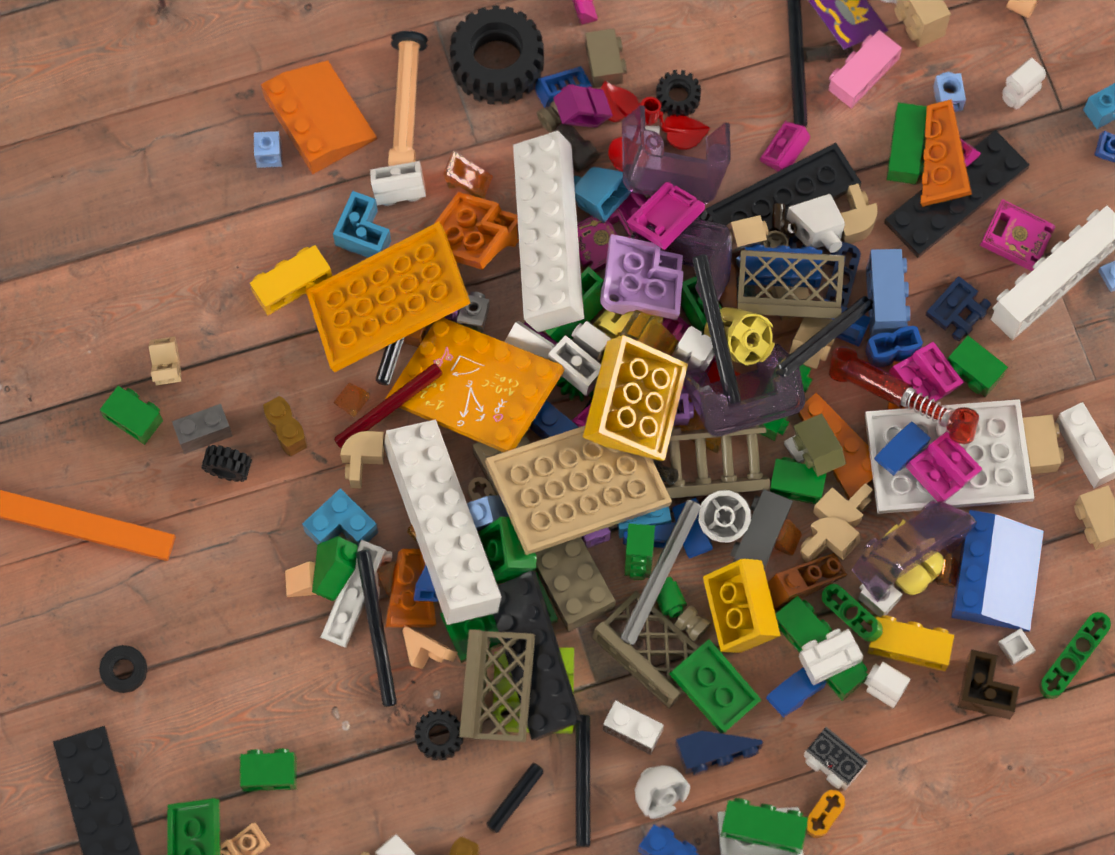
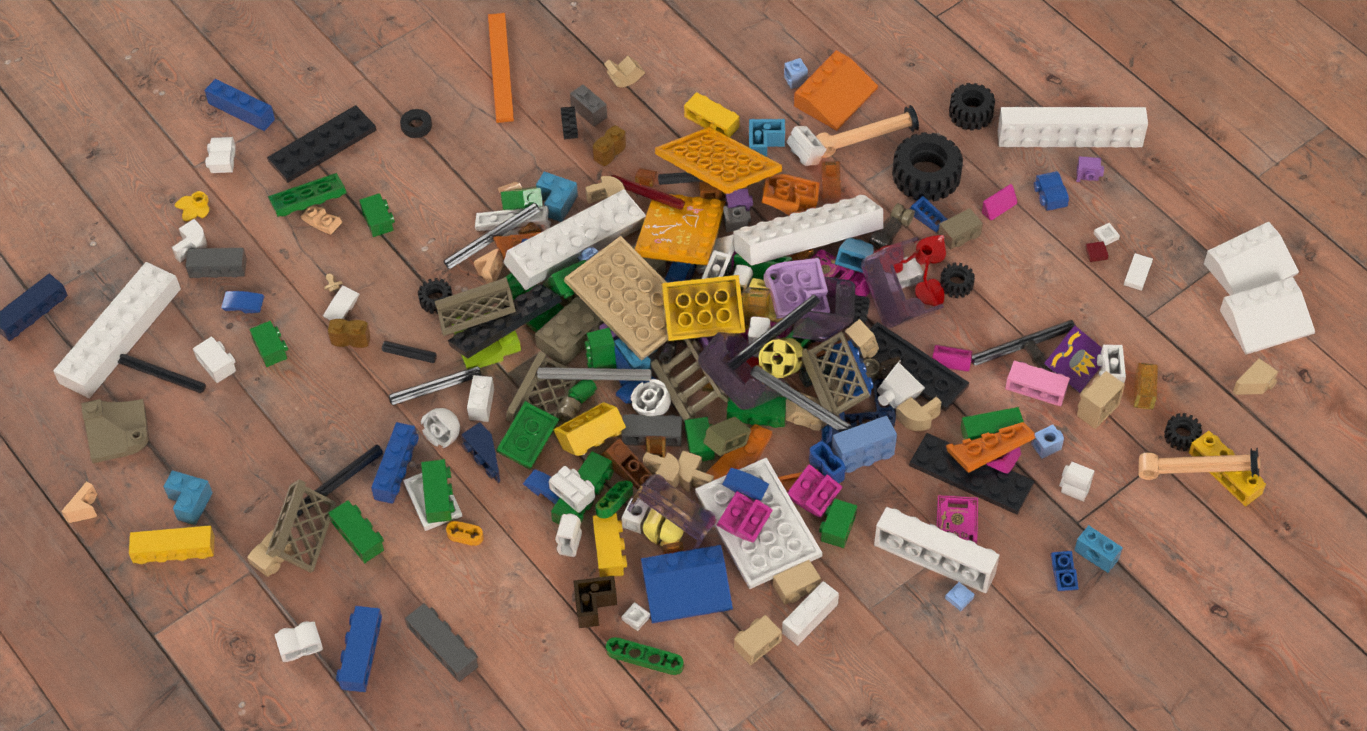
camera: 70 degrees right, 15 degrees down
(131, 414) = (582, 68): green brick -> none
(582, 106) = (913, 223): magenta piece -> none
(669, 212) = (851, 287): dark pink container -> none
(834, 759) = (505, 524): brick -> none
(847, 367) = (788, 474): clear red piece -> none
(952, 303) = (880, 494): dark blue plate -> none

